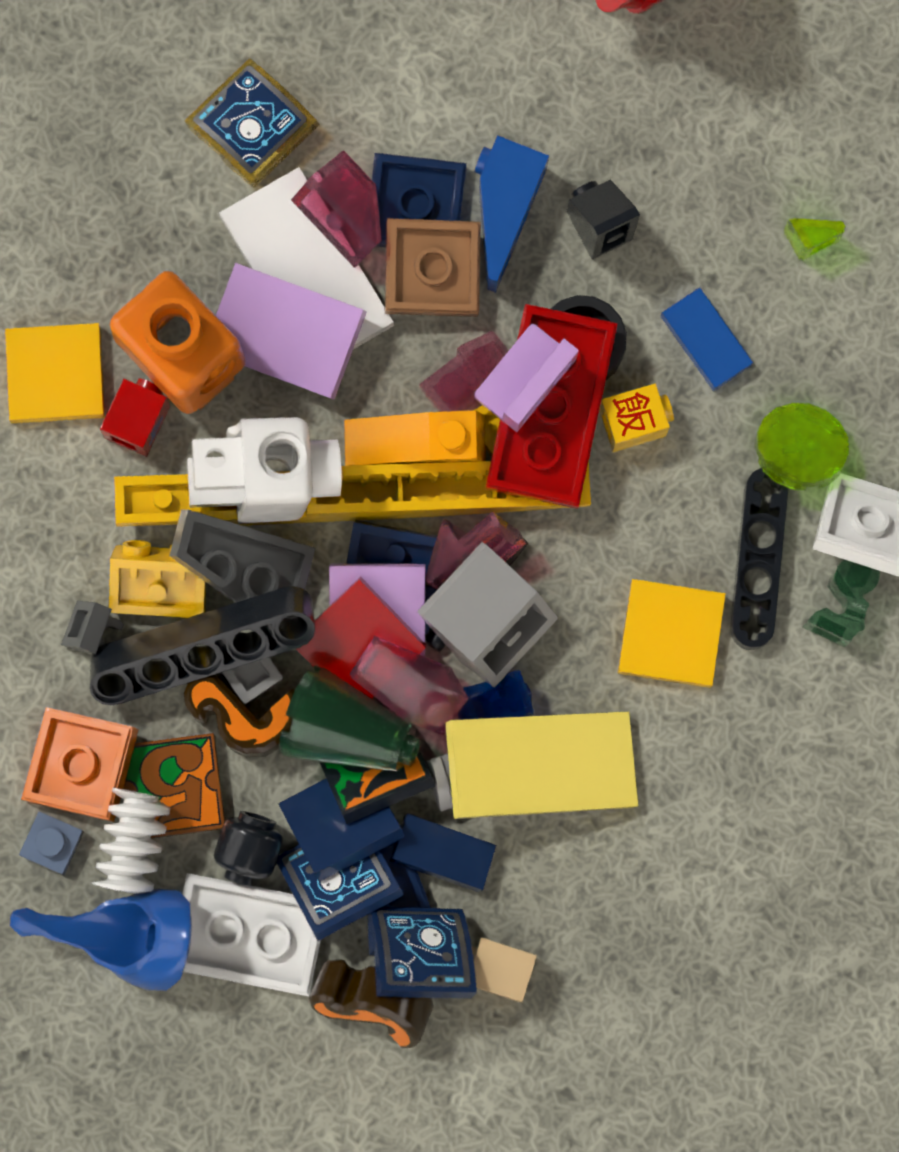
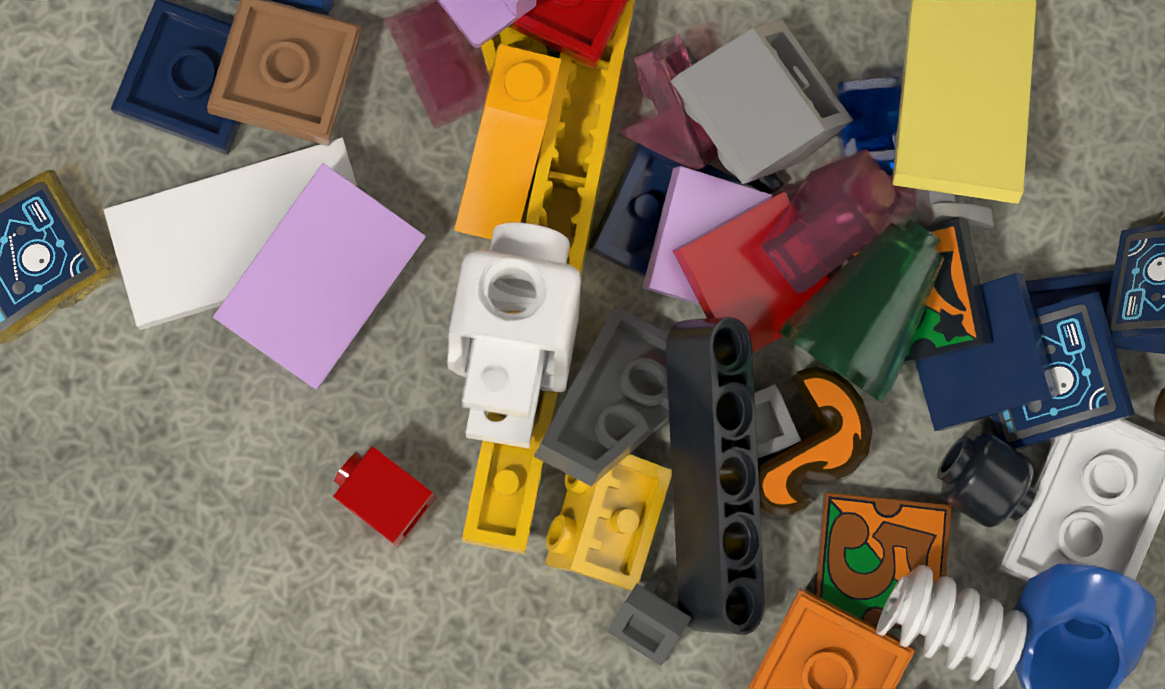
camera: 70 degrees left, 0 degrees up
(54, 373) = (295, 591): yellow tile -> none
(184, 372) = (352, 417): orange piece -> none
(343, 207) = (177, 160): clear pink slope -> none
(443, 853) = (1047, 235): dark blue tile -> none

